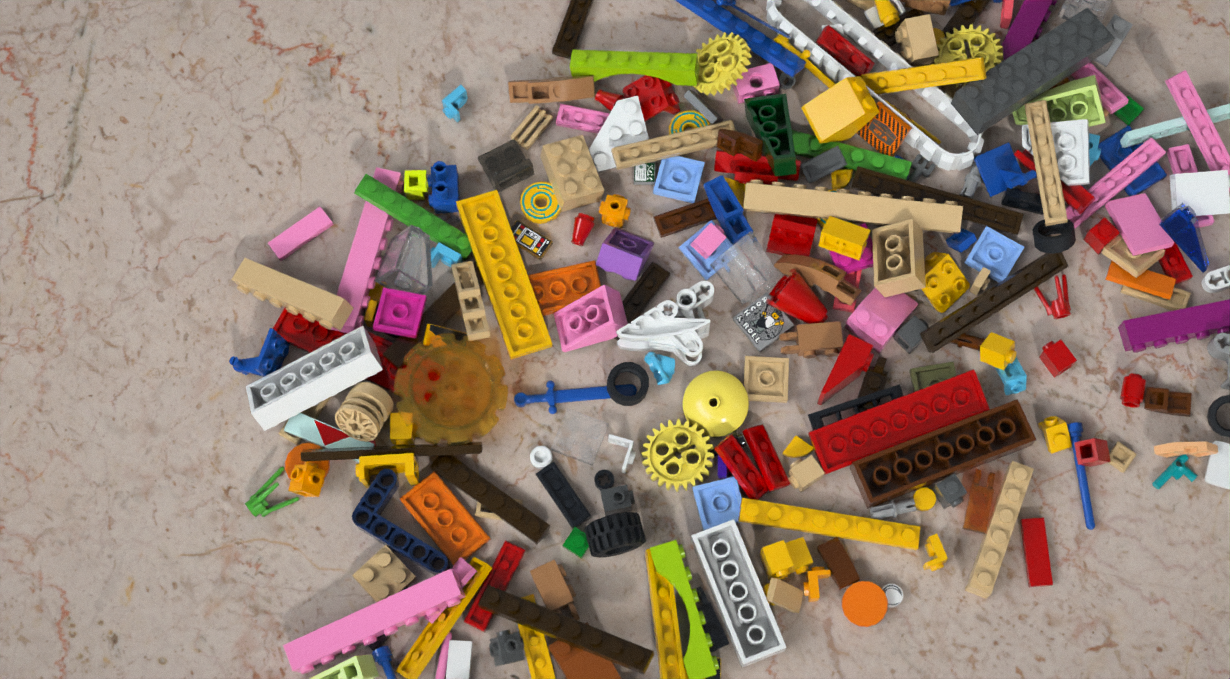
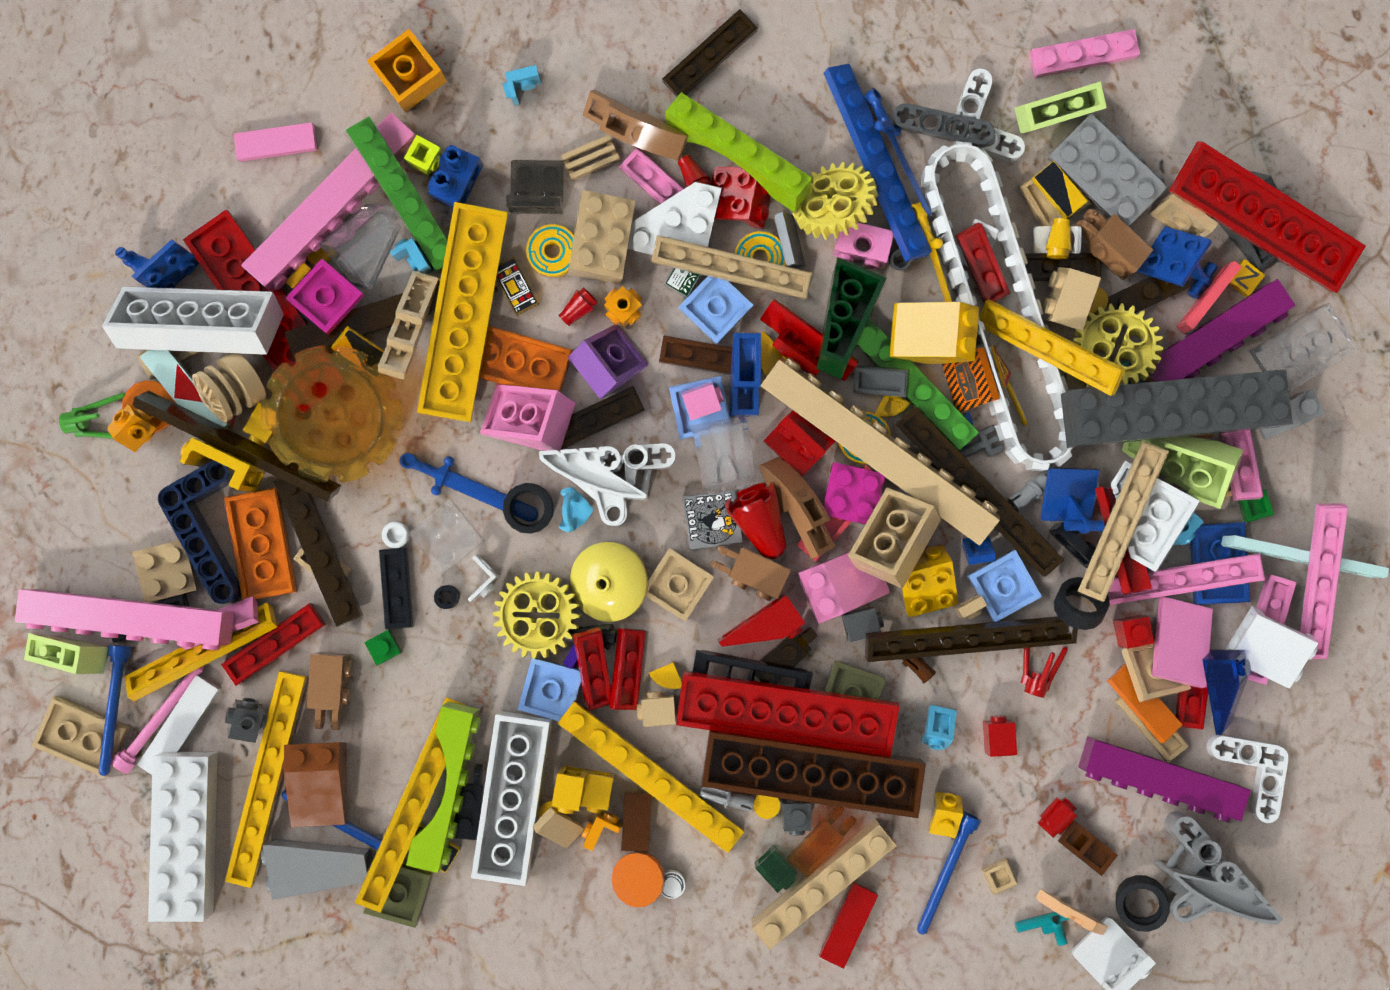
camera: 30 degrees right, 15 degrees up
(292, 294) = (220, 211): tan brick -> none
(371, 135) = (407, 70): none -> light orange brick
(566, 629) = (309, 741): dark brown plate -> none
(615, 534) = (417, 668): black tyre -> none
(617, 500) = (446, 627): dark grey brick -> none
(737, 142) = (798, 304): reddish brown slope -> none
(844, 238) = (849, 481): yellow hinge -> none
(935, 549) = (744, 866): yellow bracket -> none
(960, 539) = (776, 869): none -> clear green brick
(997, 351) = (940, 696): yellow brick -> none
(1092, 452) = (970, 860): red brick -> none

